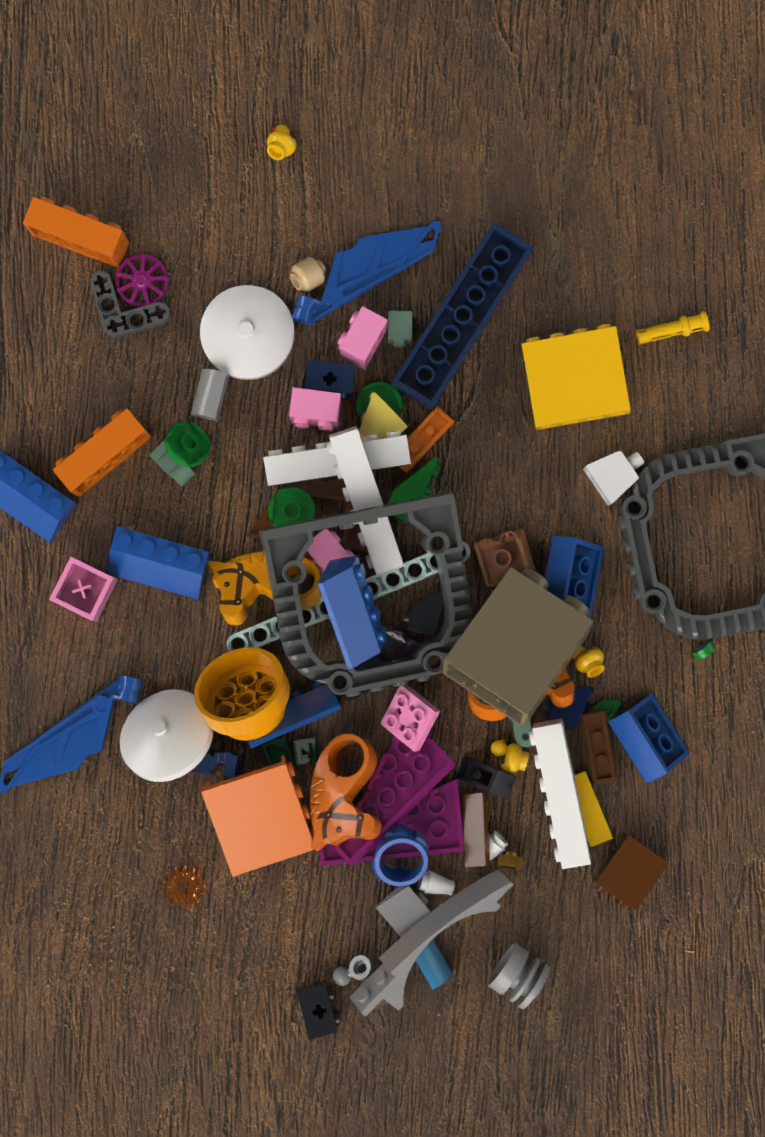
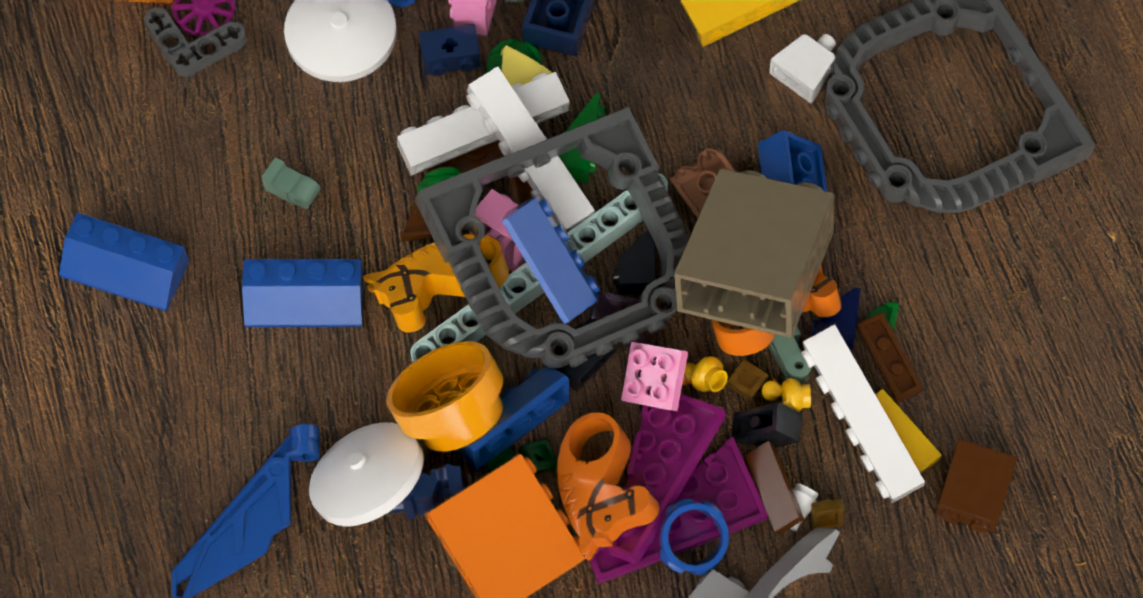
camera: 15 degrees left, 20 degrees down
(83, 589) = (221, 342): bright pink brick -> none
(101, 452) = (205, 187): orange brick -> none
(187, 444) = (303, 156): green tile -> none
(210, 394) = (315, 102): light grey brick -> none
(315, 409) = (441, 78): bright pink brick -> none
(426, 436) = (578, 84): orange tile -> none
(435, 884) = (744, 565): white cone -> none
(452, 722) = (706, 375): none -> yellow animal
(483, 734) = (747, 380): none -> pearl gold plate
(589, 661) = (844, 266): yellow animal -> none
(649, 738) = (943, 331): blue slope -> none
(704, 650) = (974, 220): green tile -> none

